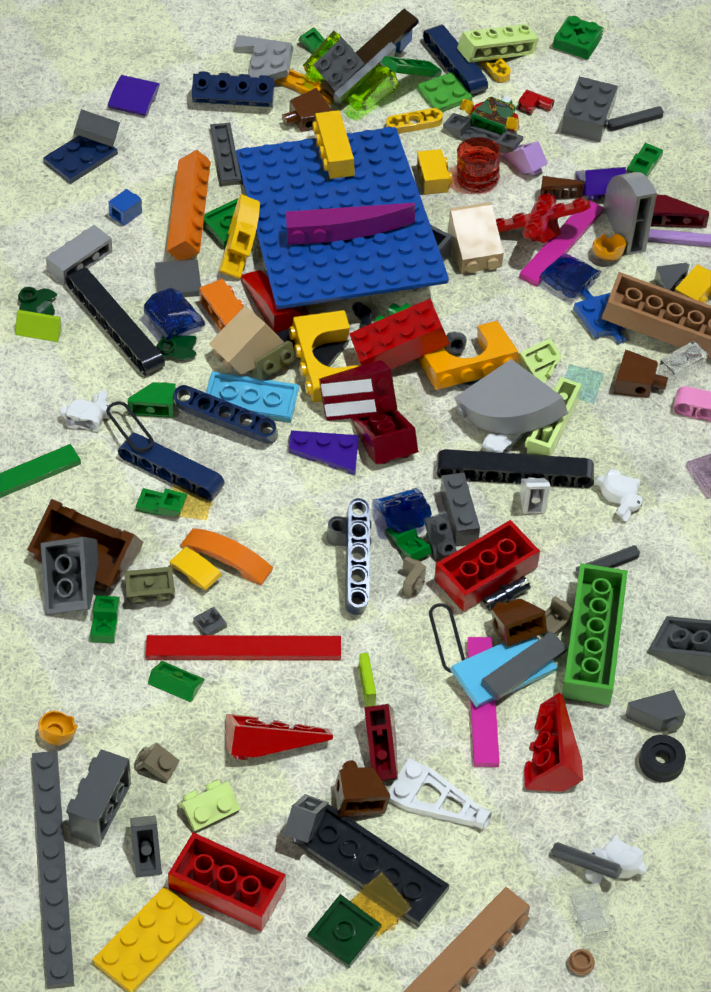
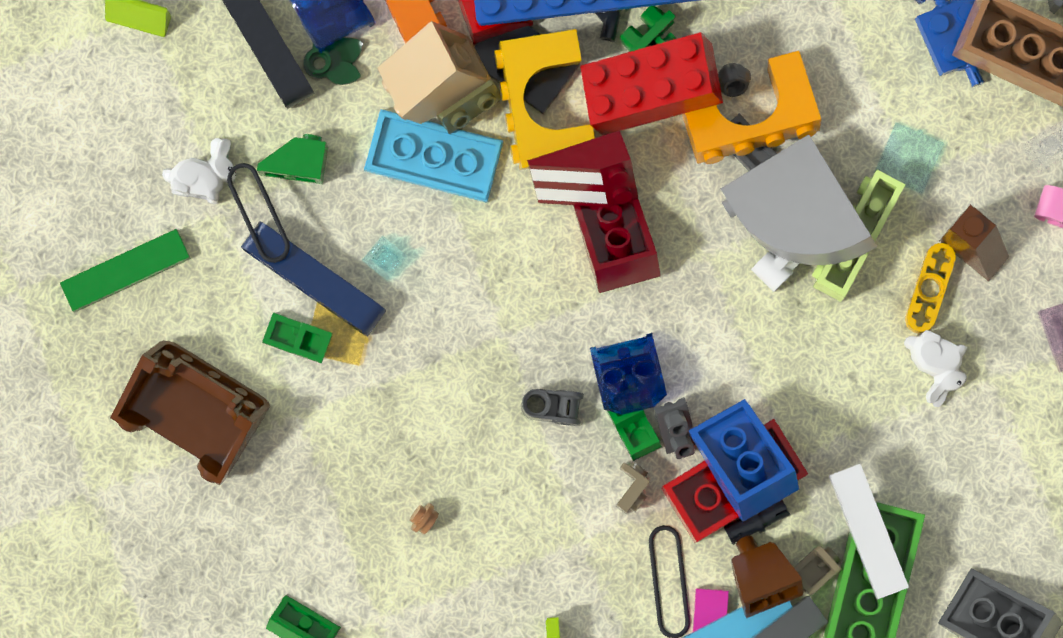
camera: 10 degrees right, 30 degrees up
(69, 574) = (166, 461): dark grey slope -> none
(105, 619) = (213, 525): green slope -> none
(148, 584) = (274, 479): olive bracket -> none
(196, 568) = (337, 454): yellow slope -> none
(210, 622) = (353, 539): dark grey tile -> none
(218, 406) = (378, 196): dark blue beam -> none
(220, 455) = (384, 258): none -> clear light blue tile
(230, 553) = (382, 430): orange slope -> none
(242, 647) = (395, 582): red tile -> none
(261, 604) = (423, 518): none -> medium nougat plate
(329, 448) = (535, 255): dark purple wing -> none
(354, 566) = (560, 476): beam -> none
(459, 508) = (706, 374): dark grey brick -> none
(495, 539) = (745, 460): none -> blue slope
(514, 467) = (794, 310): black beam -> none
(534, 495) = (814, 360): white slope -> none
(540, 359) = (852, 122): yellowish green wing -> none
(589, 580) = (868, 531): none -> white tile
(606, 445) = (946, 268): none -> yellow beam
(616, 558) = (908, 473): dark grey axle -> none
(635, 416) = (977, 242): none -> reddish brown slope
(638, 376) = (992, 156): reddish brown torso -> none

